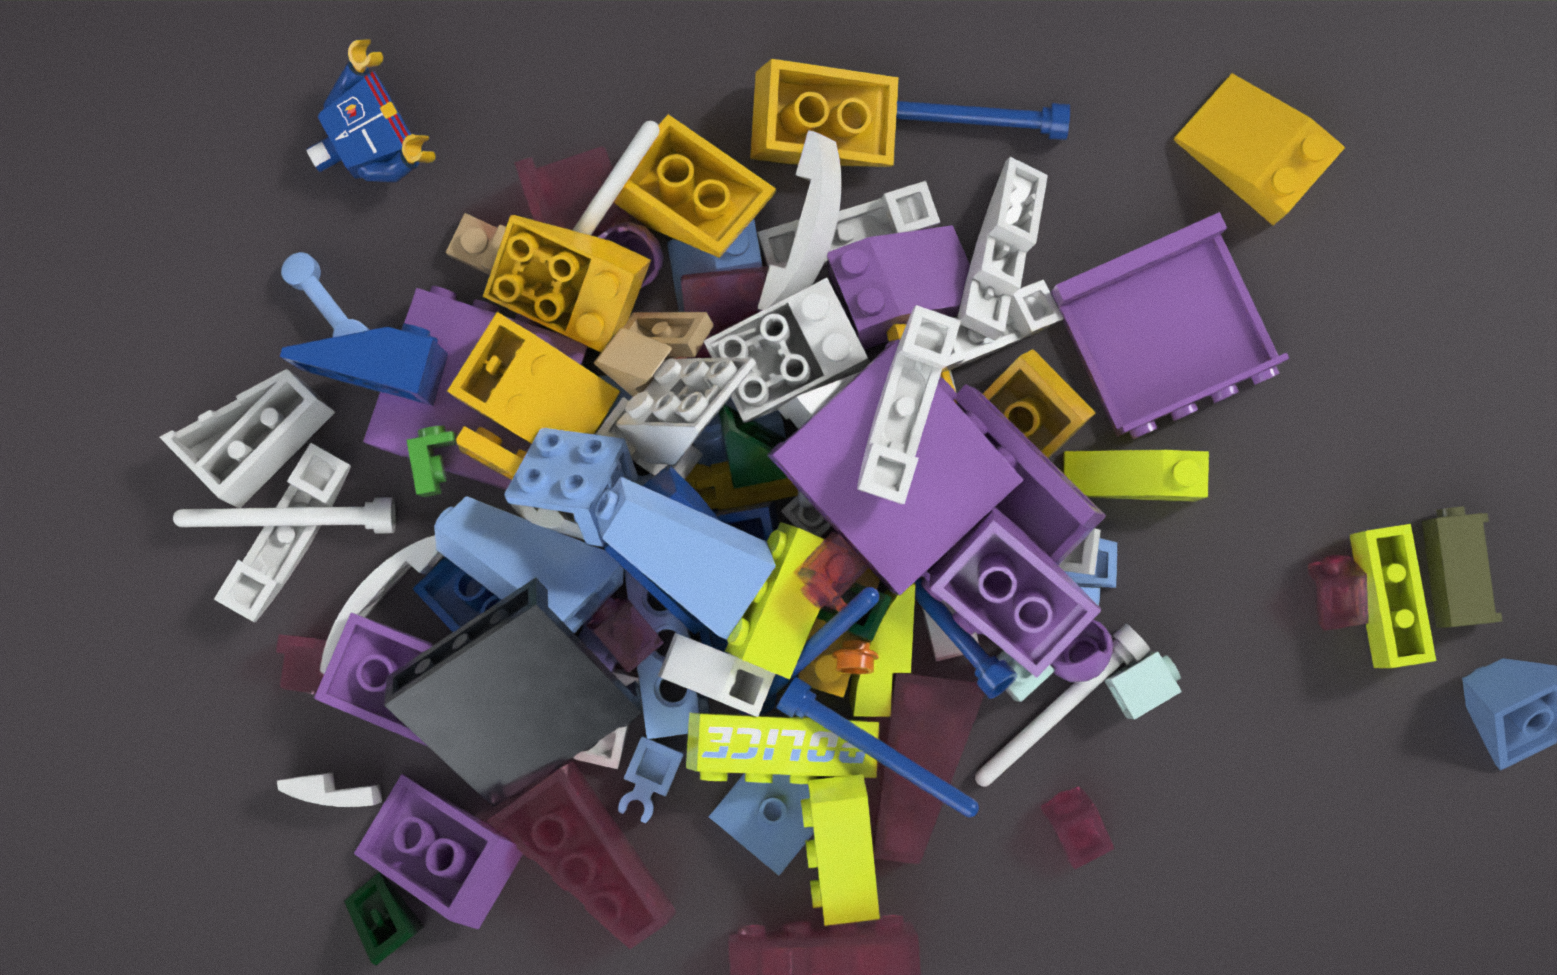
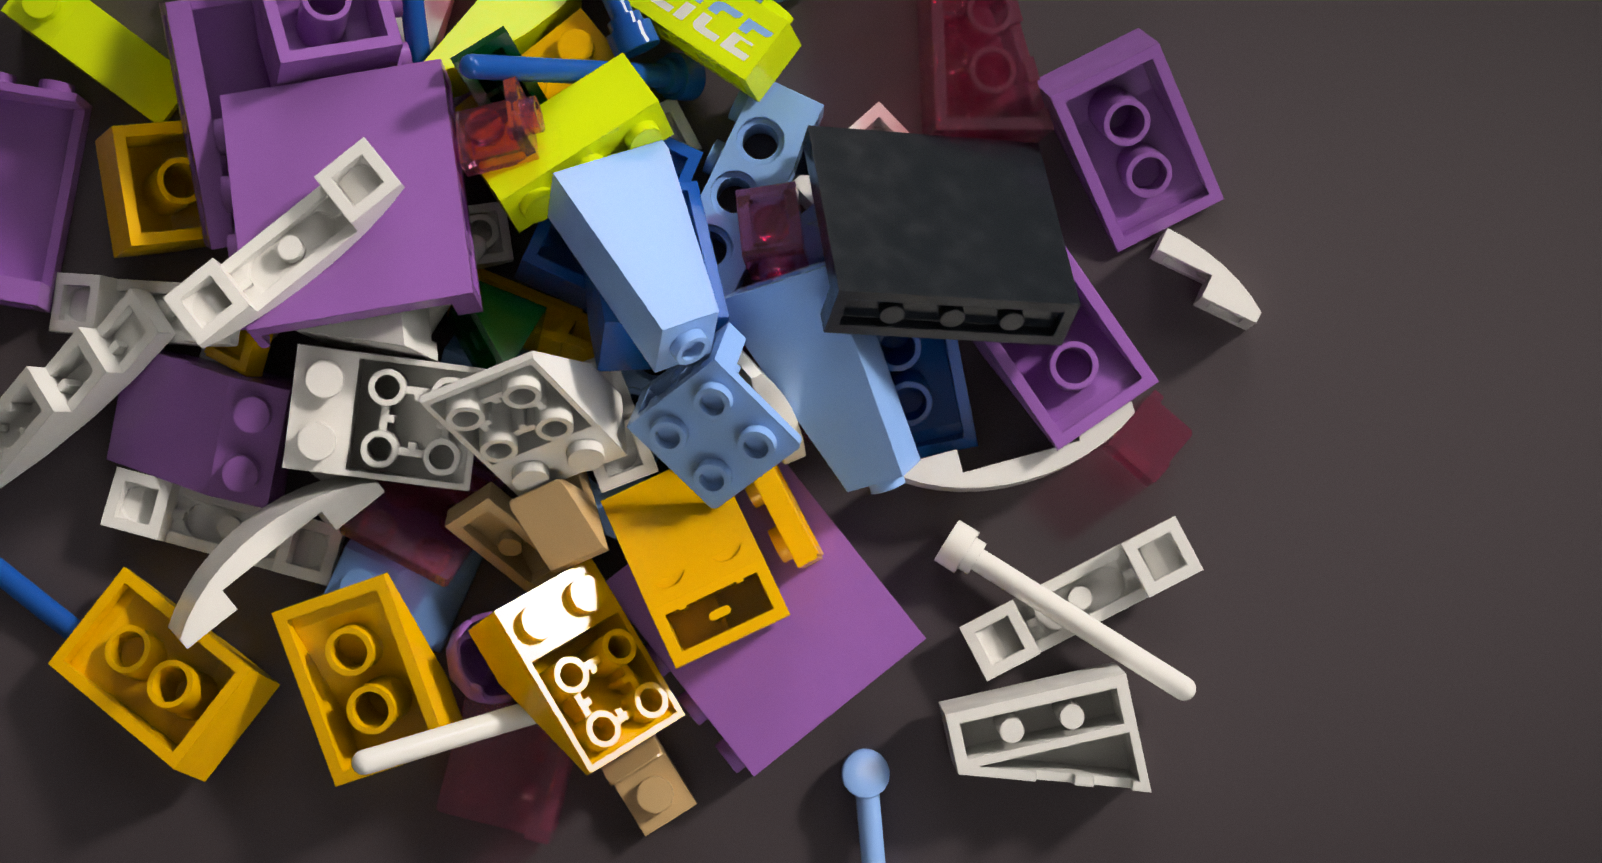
camera: 150 degrees left, 0 degrees up
(380, 359) = (841, 699): blue slope -> none
(381, 918) = (1235, 105): dark green slope -> none
(426, 468) = (870, 553): bright green bracket -> none
(651, 771) = (843, 75): light blue plate -> none
(716, 674) = (702, 116): white slope -> none
(855, 657) = (537, 34): orange plate -> none

